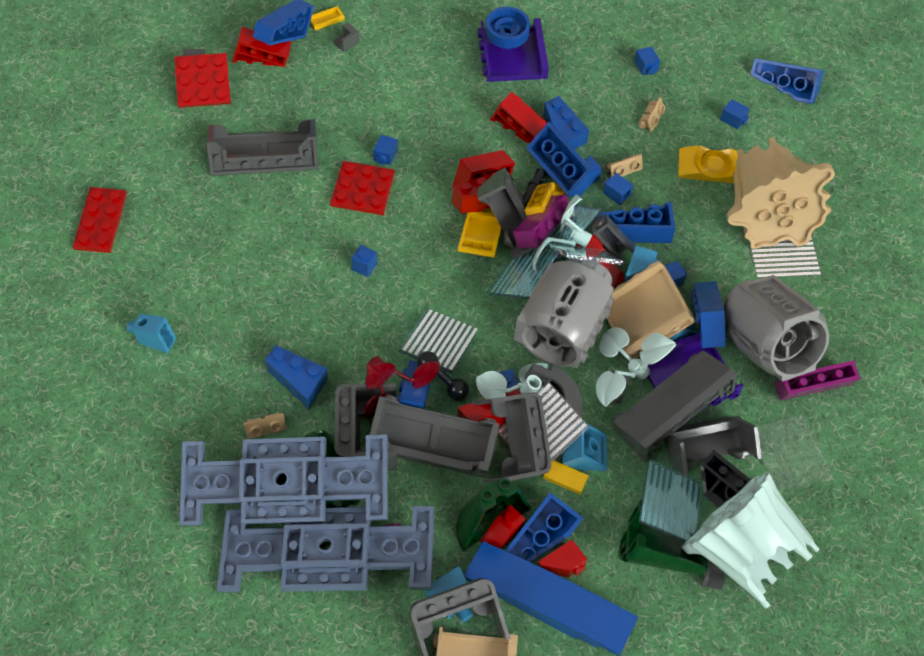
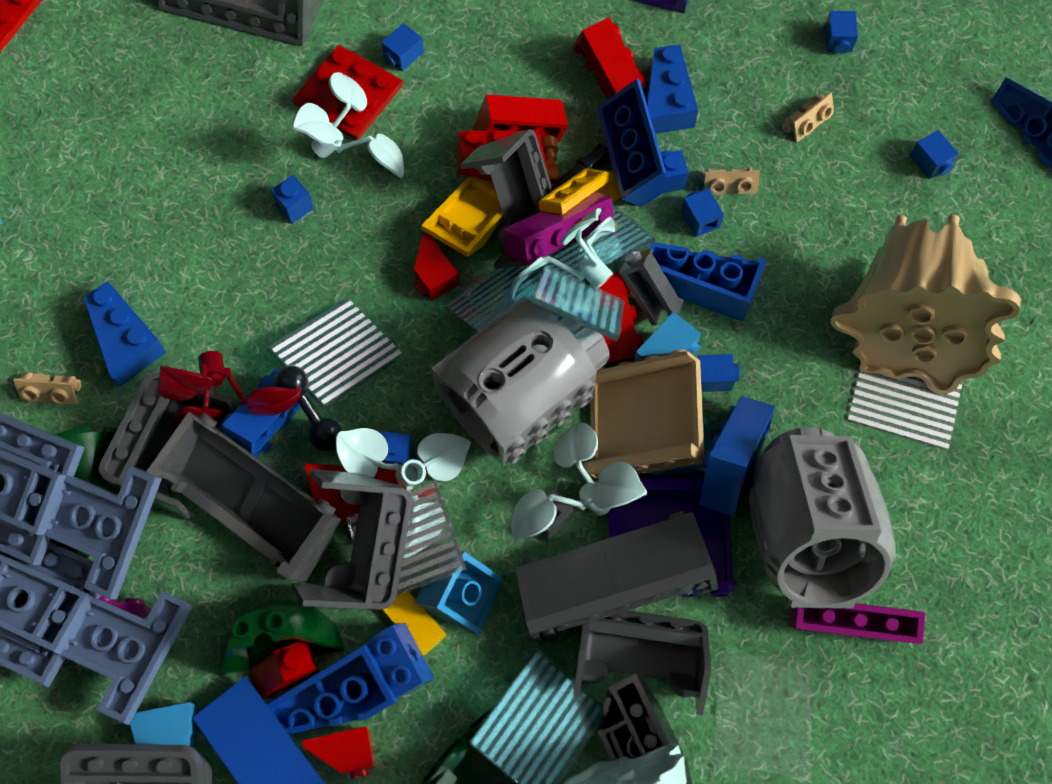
camera: 25 degrees right, 10 degrees up
(371, 212) = (327, 138): none -> light aqua plant
(474, 273) = (433, 270): none -> red slope
(561, 382) = (471, 489): dark grey arch -> none
(572, 496) = (400, 659): none -> blue brick
(707, 164) = (854, 216): yellow slope -> none

